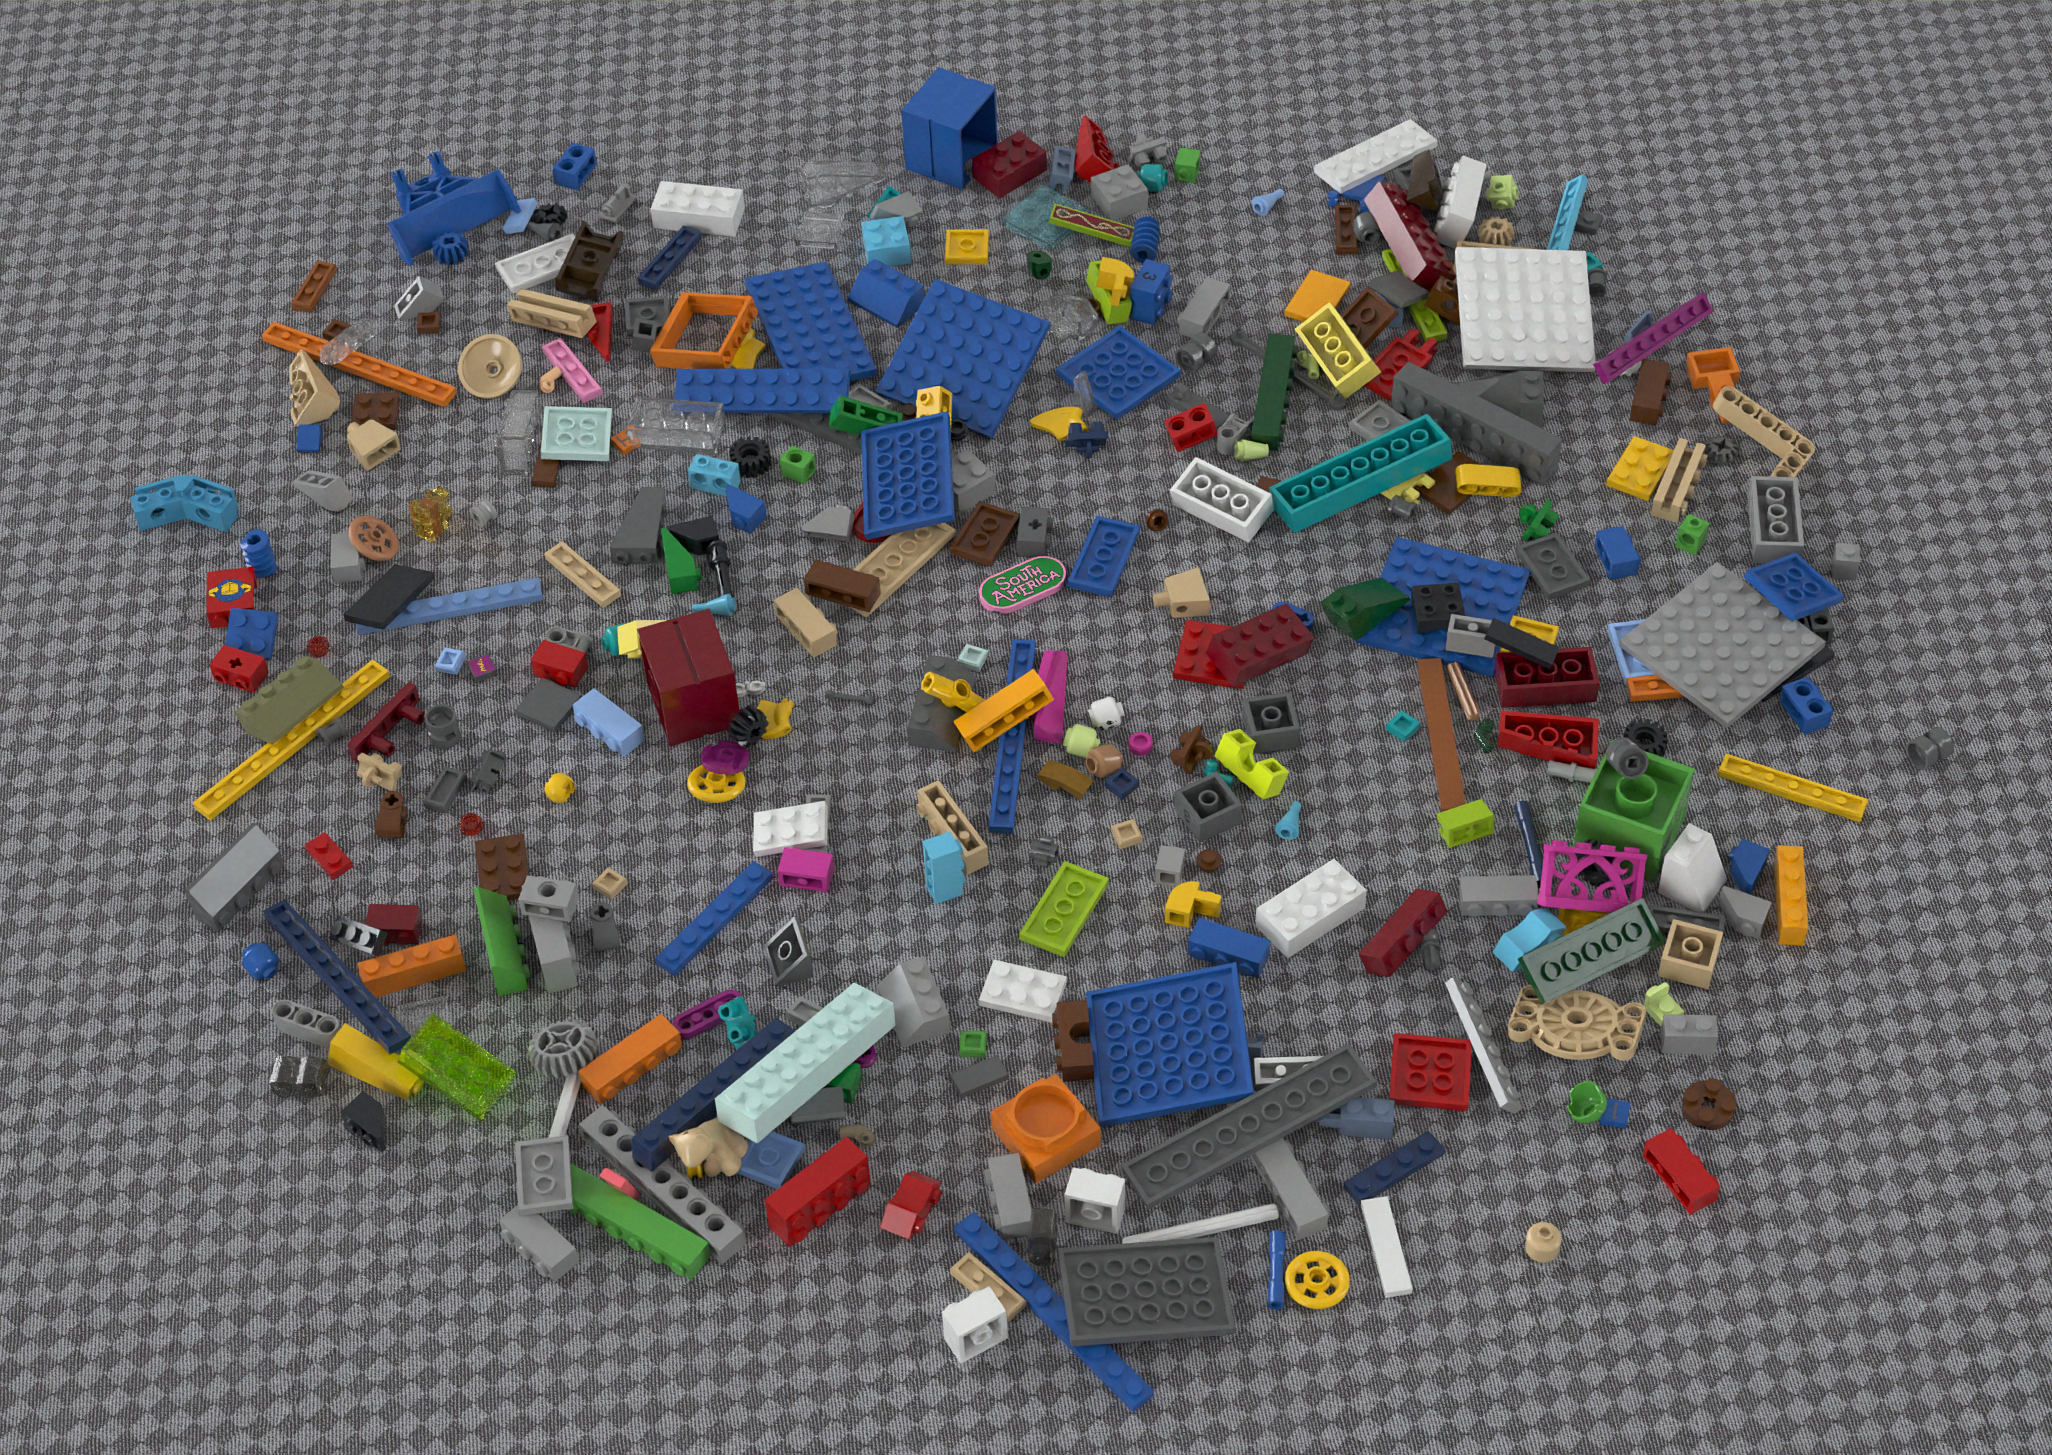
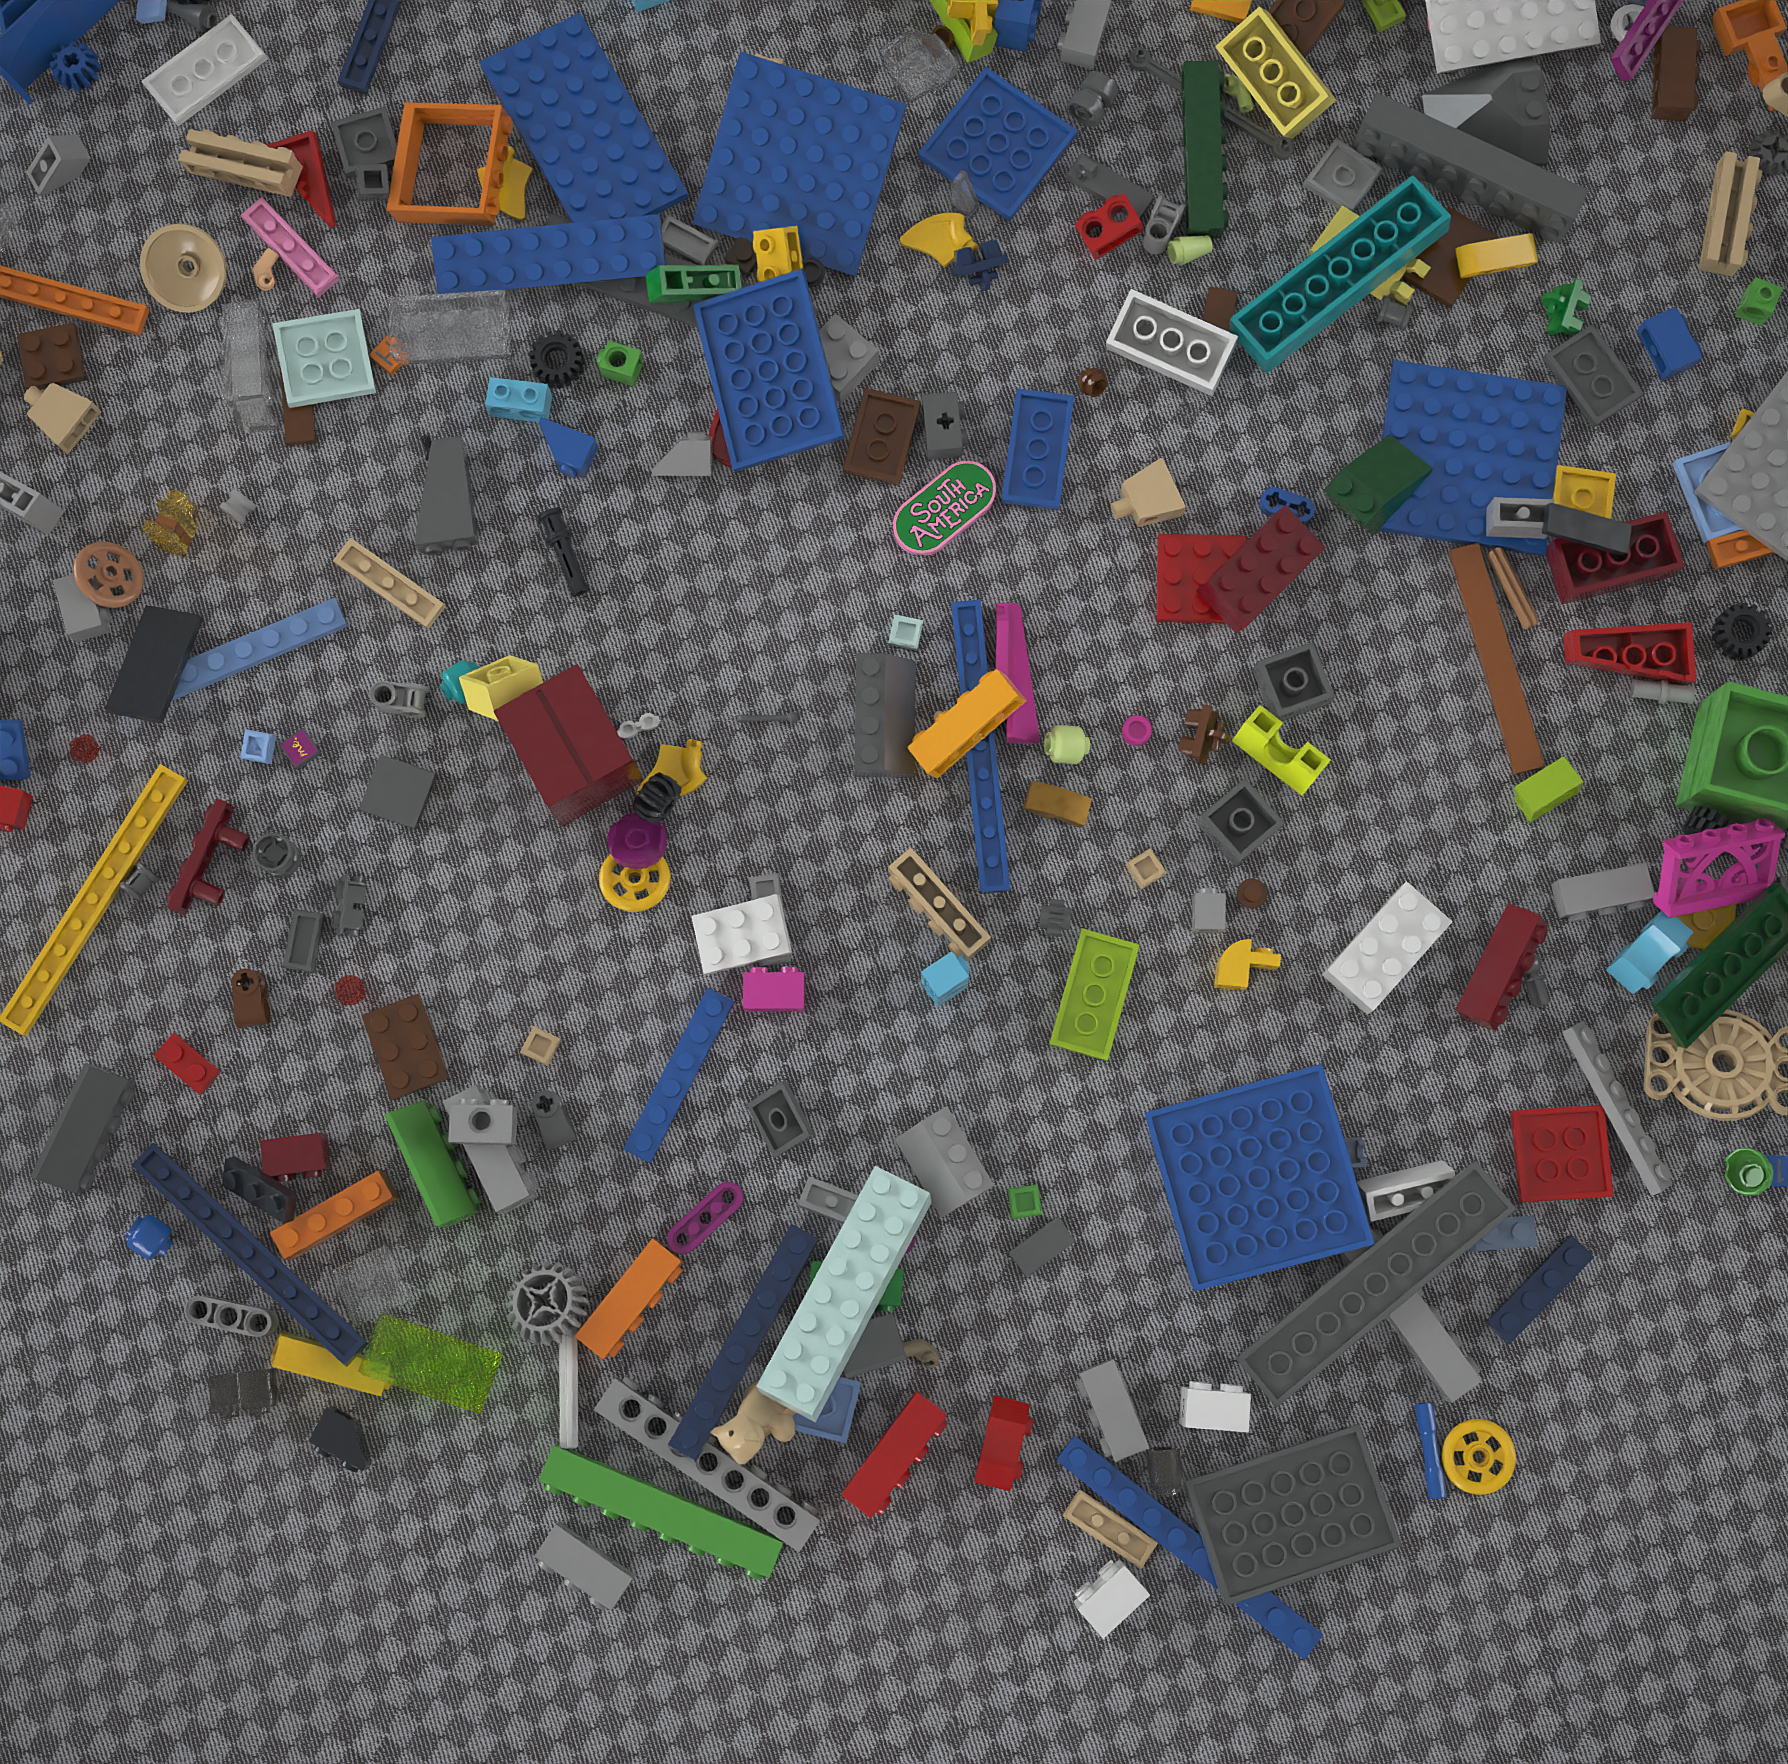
camera: 10 degrees left, 30 degrees up
(288, 700) = (73, 849): olive slope -> none
(375, 771) = (213, 937): tan hips -> none
(428, 323) = (81, 199): reddish brown plate -> none
(544, 1175) = (572, 1495): light grey plate -> none
(559, 663) = (395, 731): red brick -> none
(559, 788) = (445, 921): yellow piece -> none
(585, 276) = (262, 90): dark brown piece -> none
(608, 722) = (479, 812): light blue brick -> none
(620, 1183) = (663, 1485): coral tile -> none
(680, 565) = (509, 552): green slope -> none
(695, 534) = (518, 500): black slope -> none
(722, 605) = (577, 605): medium azure cone -> none
(738, 1021) = (746, 1228): teal hips -> none
(806, 622) = (689, 614): tan brick -> none
(842, 585) = (724, 559): reddish brown brick -> none
(886, 293) = (671, 57): blue slope -> none
(902, 557) = (772, 514): tan plate -> none
(951, 692) = (901, 710): yellow piece -> none
(1022, 990) = (1067, 1117): white plate -> none
(1045, 1127) = (1136, 1312): orange container -> none
(1074, 1058) = (1146, 1210): reddish brown arch -> none
(1103, 760) = (1100, 770): medium nougat head -> none
(1106, 713) = (1088, 697): white head -> none
(1121, 783) = (1127, 798): dark blue plate -> none
(1208, 1225) = (1335, 1409): white axle -> none
(1212, 766) = (1235, 766): teal arm -> none
(1228, 945) = (1299, 1021): blue brick -> none
(1289, 825) = (1338, 827): medium azure cone -> none
(1386, 1247) = (1548, 1397): white tile -> none
(1396, 356) = (1355, 74): red tile -> none
(1403, 726) = (1450, 655): teal plate -> none
(1435, 604) = (1468, 473): black brick -> none
(1483, 733) = (1545, 651): clear green arm -> none
(1526, 822) = (1639, 837): dark blue piece -> none
(1543, 1242) = (1726, 1368): tan head -> none
(1627, 758) = (1756, 715): dark grey wheel -> none
(1640, 468) = (1678, 198): yellow plate -> none

